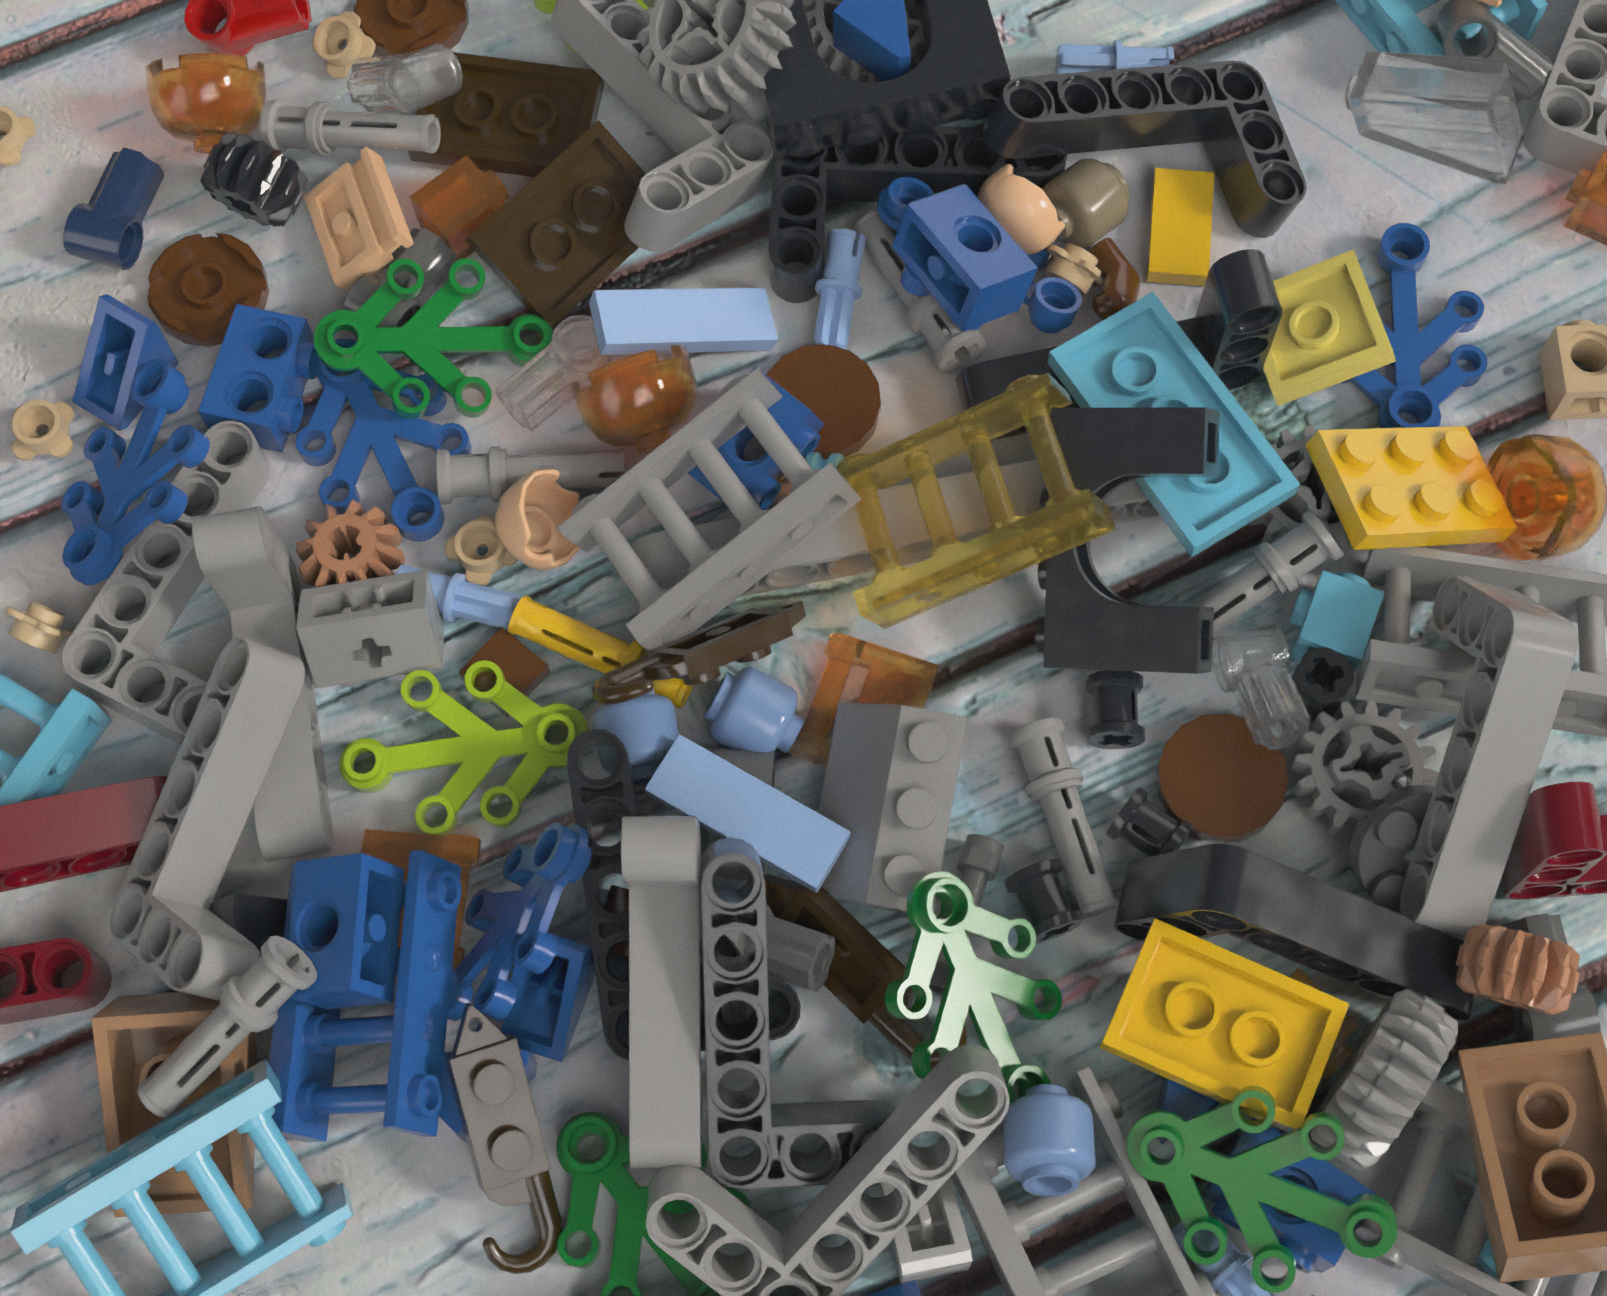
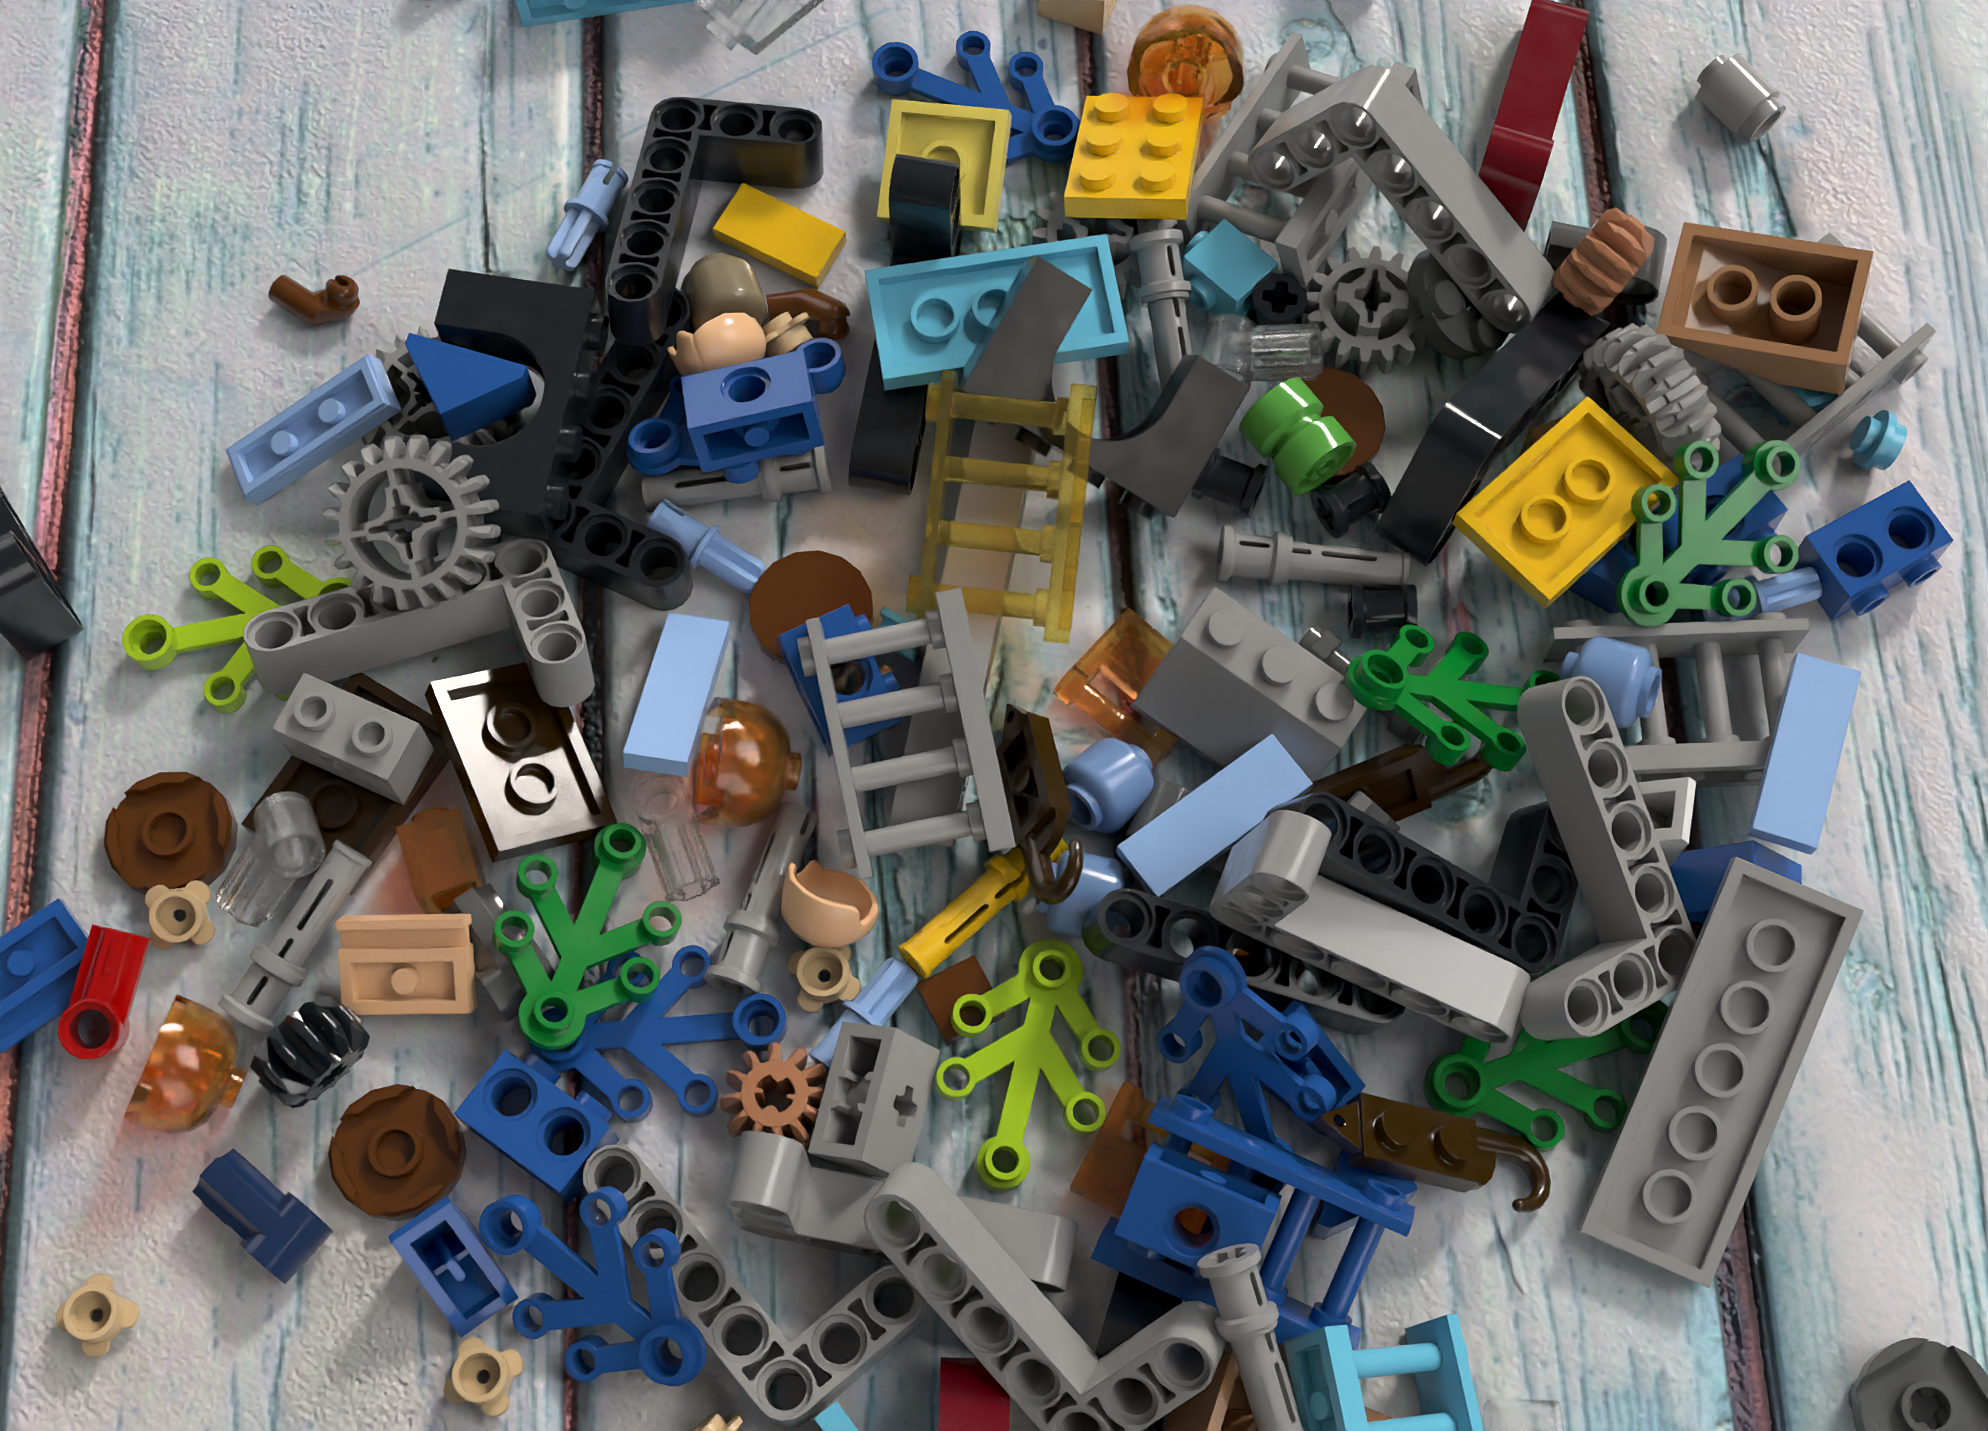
camera: 70 degrees left, 0 degrees up
(525, 88) = (353, 738): none -> light grey brick
(1182, 739) = (1290, 428): none -> bright green wheel

